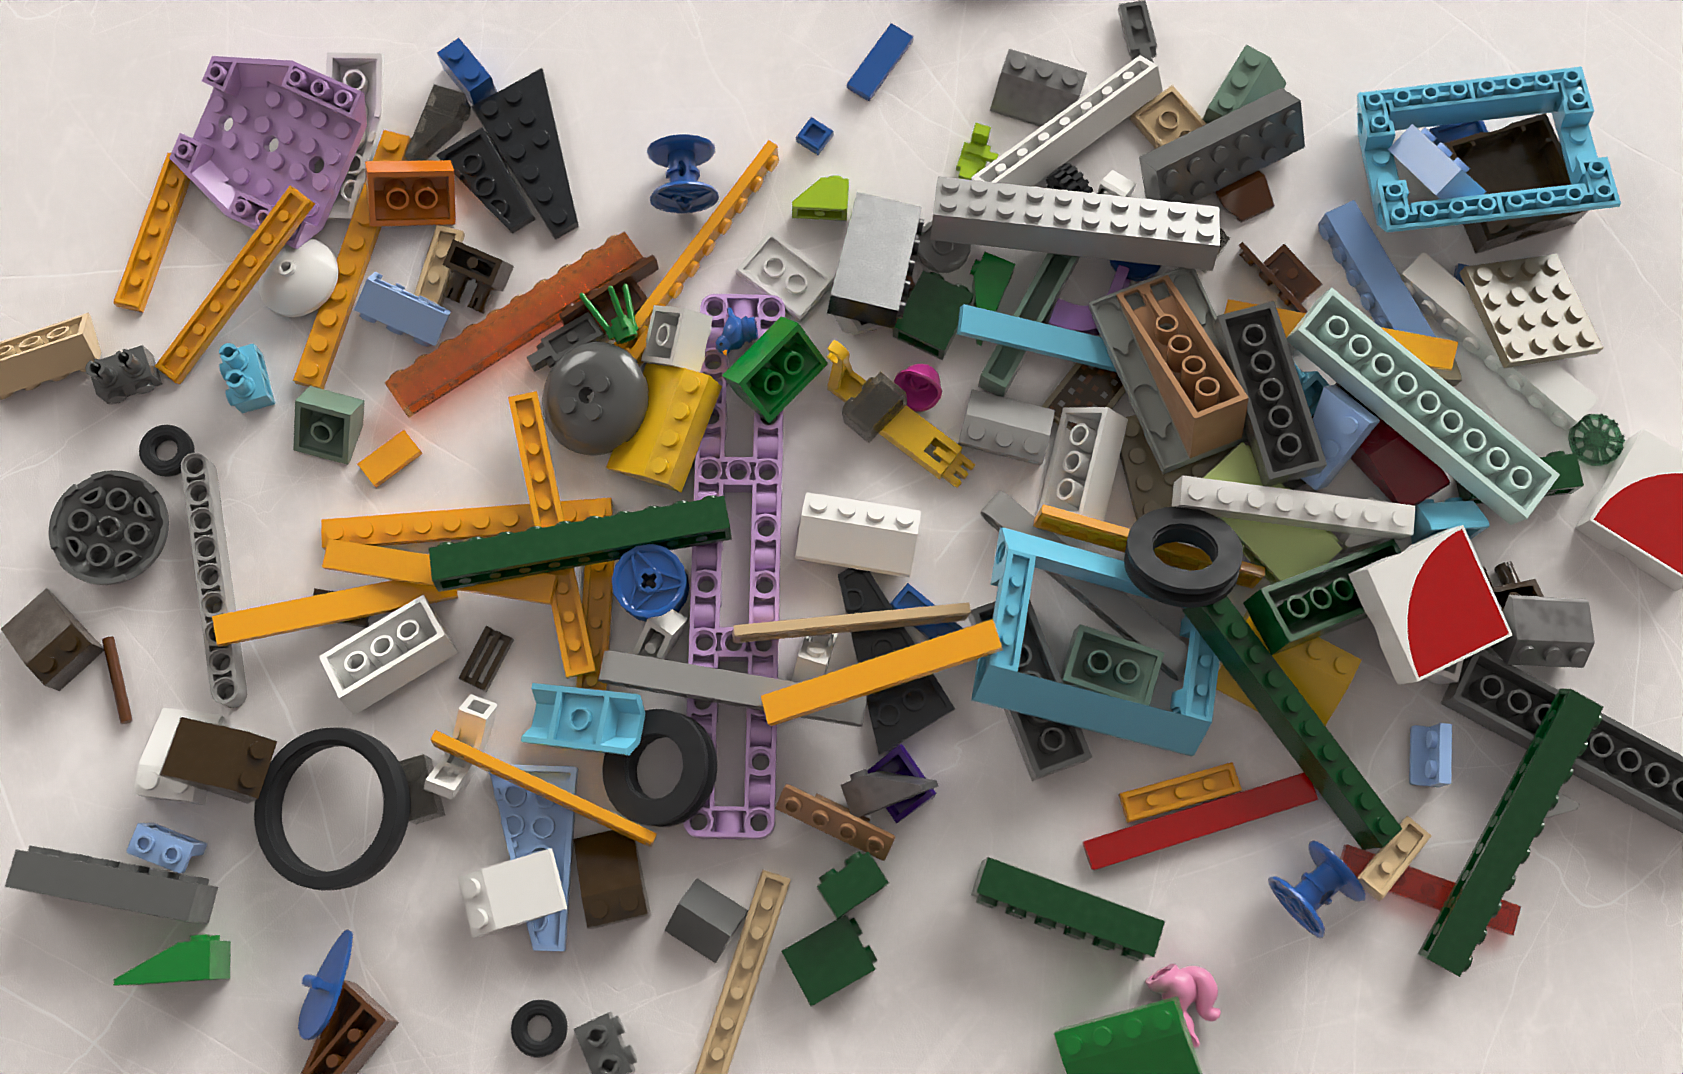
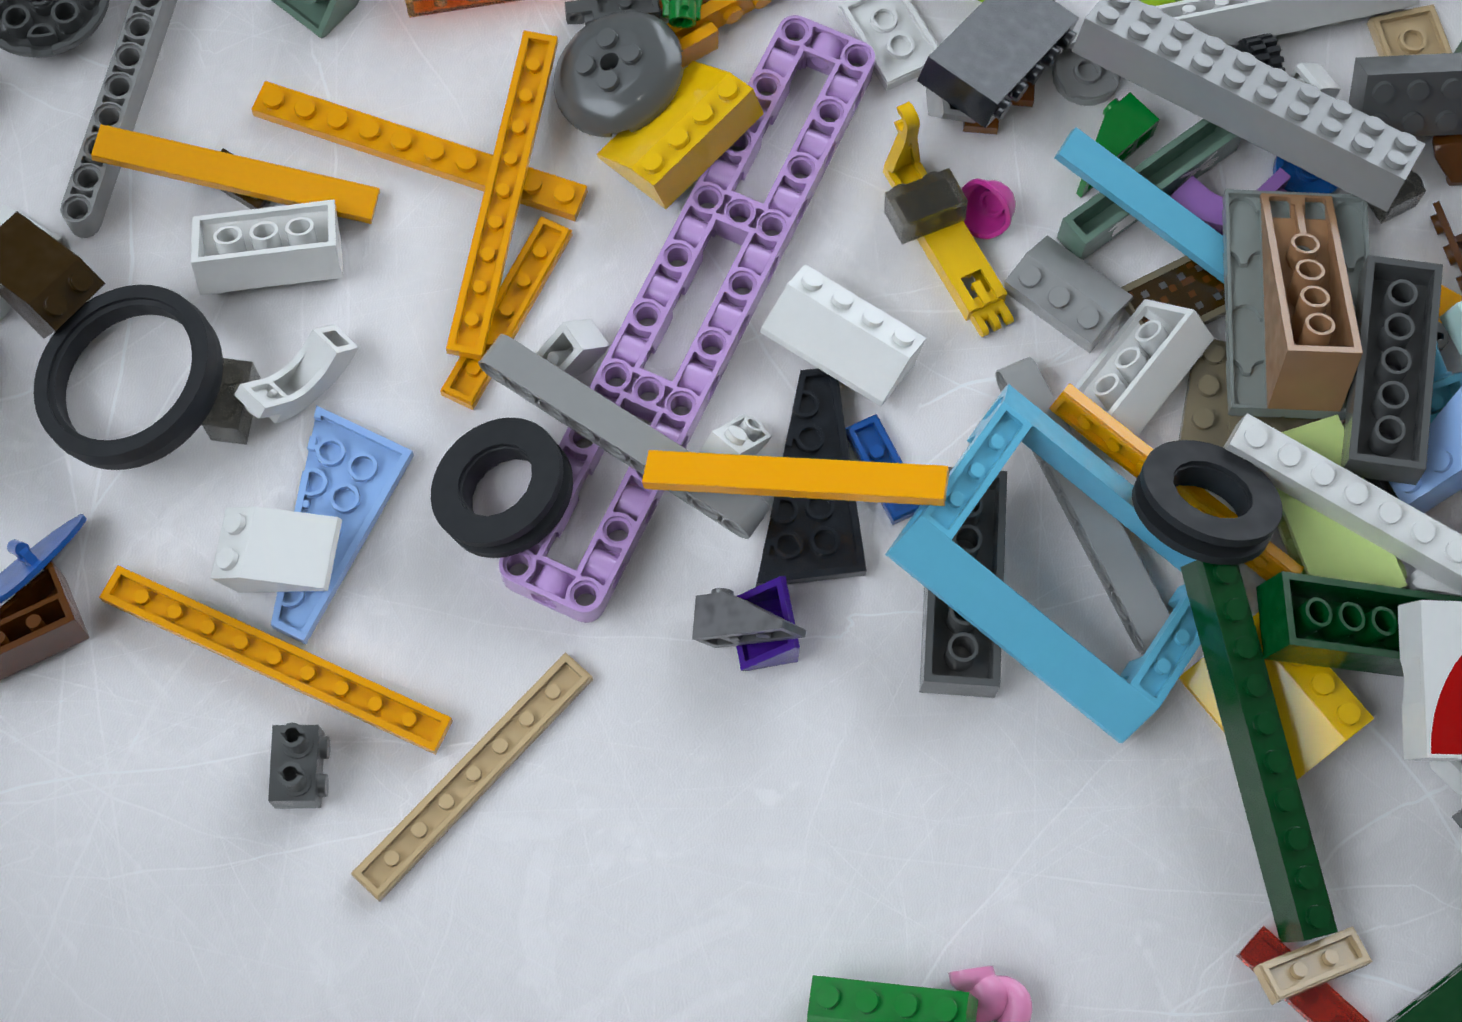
camera: 25 degrees right, 5 degrees down
(389, 458) = (368, 49): light orange tile -> none
(416, 569) = (364, 183): light orange tile -> none
(487, 632) = (361, 289): dark brown tile -> none
(520, 1024) = (225, 693): black tyre -> none
(543, 789) = (365, 455): light orange tile -> none
(548, 974) = (276, 659): none -> light orange plate
(577, 543) = (528, 210): dark green brick -> none
(586, 719) = (447, 400): medium azure piece -> none
(610, 879) = (392, 589): dark brown slope -> none
(652, 564) = (585, 283): blue piece -> none
(677, 337) = (739, 41): white brick -> none
(705, 920) = (475, 679): dark grey slope -> none
(736, 333) = (806, 63): blue animal -> none
(775, 368) = (832, 118): green slope -> none
(829, 959) = (594, 782): dark green brick -> none
(835, 821) = (670, 631): medium nougat bracket -> none
(850, 622) = (780, 419): tan tile -> none
(851, 884) = (657, 707): dark green brick -> none
(932, 314) = (1032, 136): dark green brick -> none
(1067, 908) = (892, 844): dark green brick -> none
(1111, 665) = (1073, 595): sand green slope -> none
(1179, 792) = (1088, 780): light orange tile -> none
(1199, 821) = (1098, 822): red tile -> none
(1317, 888) = (1180, 958): blue piece -> none
(1430, 755) = (1411, 868): light blue bracket -> none

